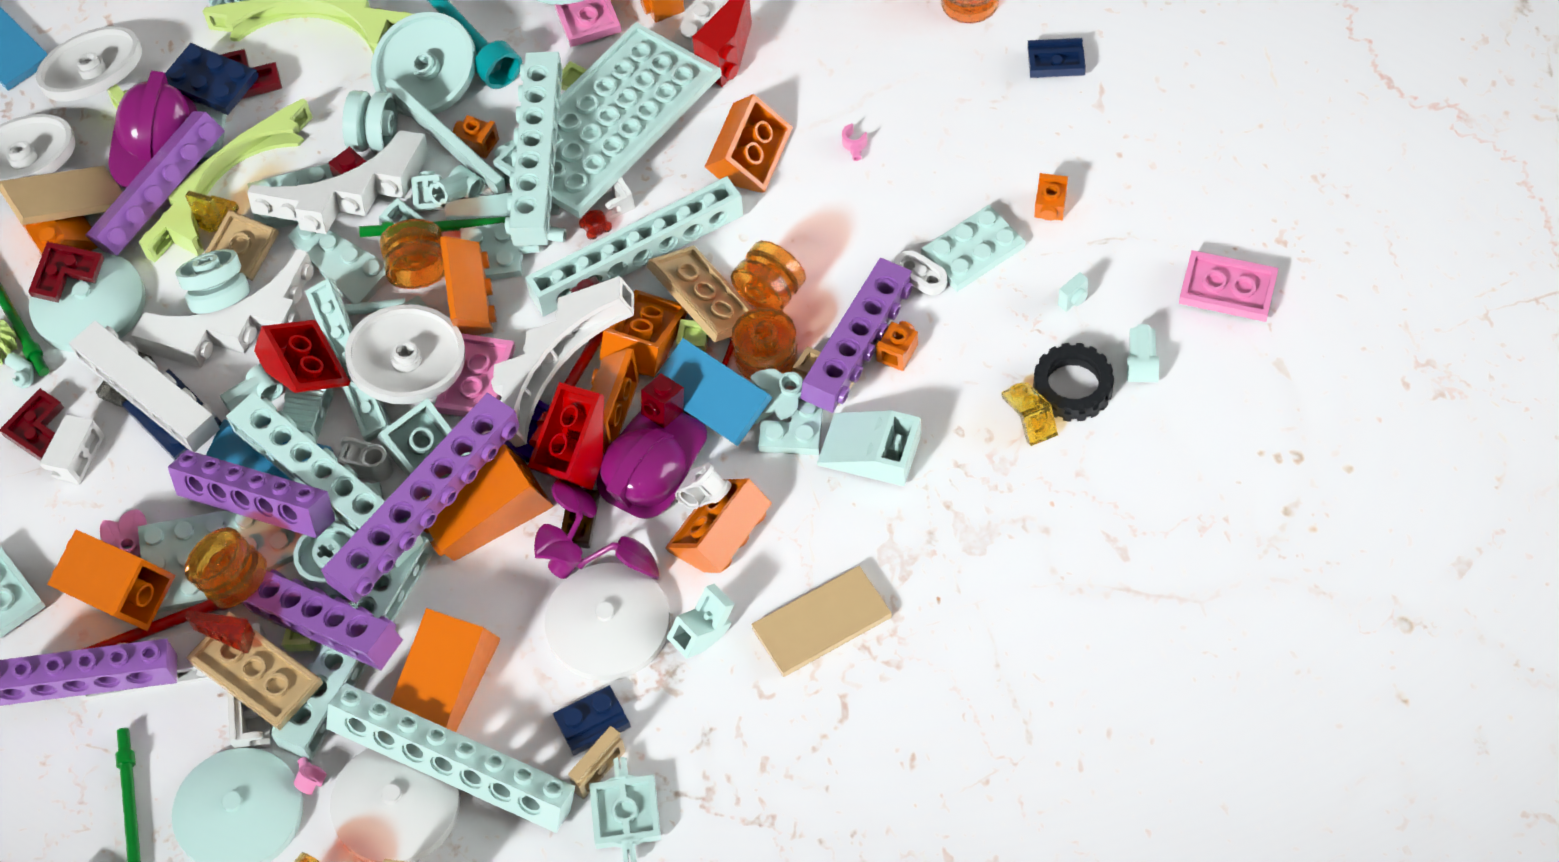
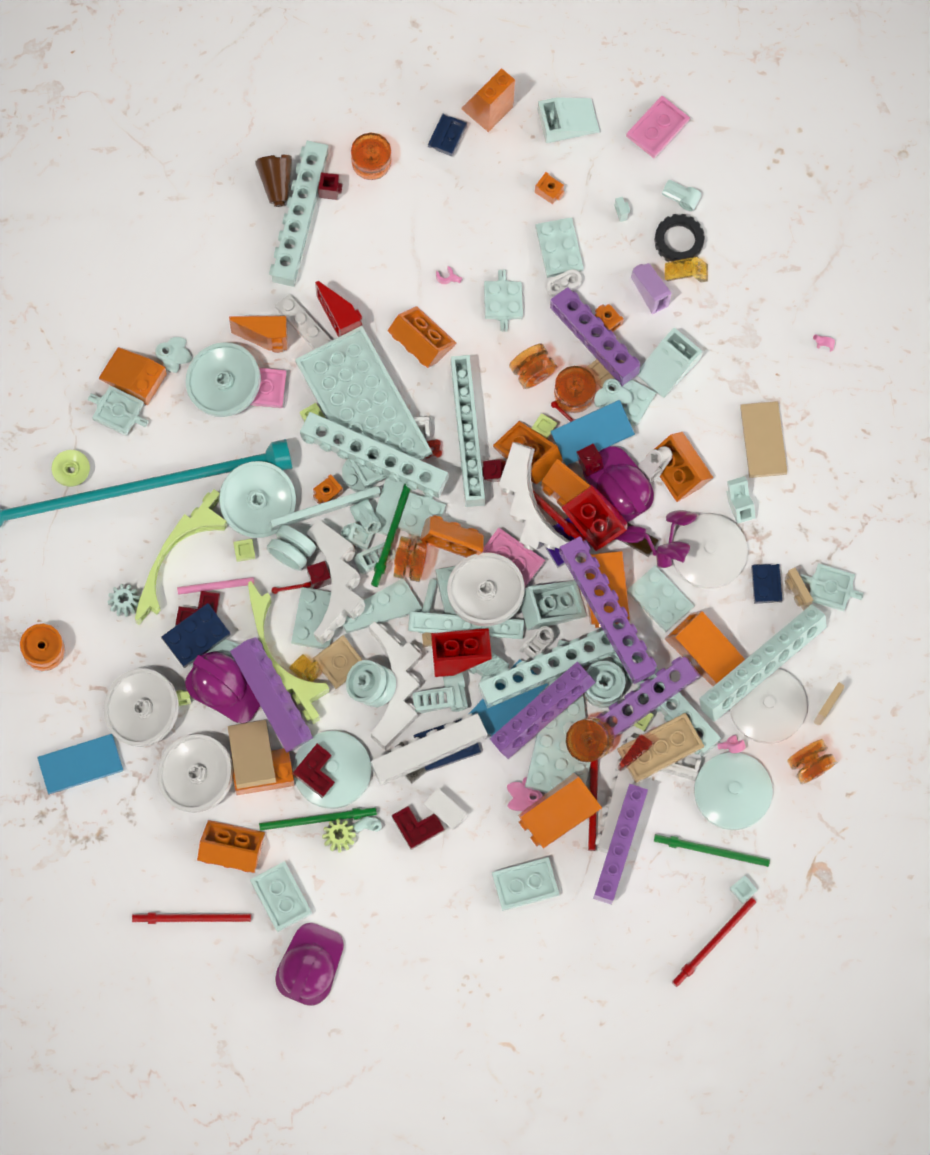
camera: 75 degrees left, 15 degrees up
(224, 366) = (421, 700): none -> light aqua slope
(293, 78) = (214, 585): none -> bright pink bar
(315, 141) = (275, 590): none -> red hinge
(352, 81) = (244, 550): none -> yellowish green plate
(502, 588) = (660, 598): none -> light aqua plate
(700, 290) = (518, 407): tan tile -> none
(855, 215) = (503, 300): none -> light aqua plate
(971, 374) = (651, 288): none -> lavender slope
(1022, 635) = (824, 341): none -> bright pink piece
(1127, 66) = (492, 100): none -> orange slope
(1166, 172) = (567, 118): none -> light aqua slope

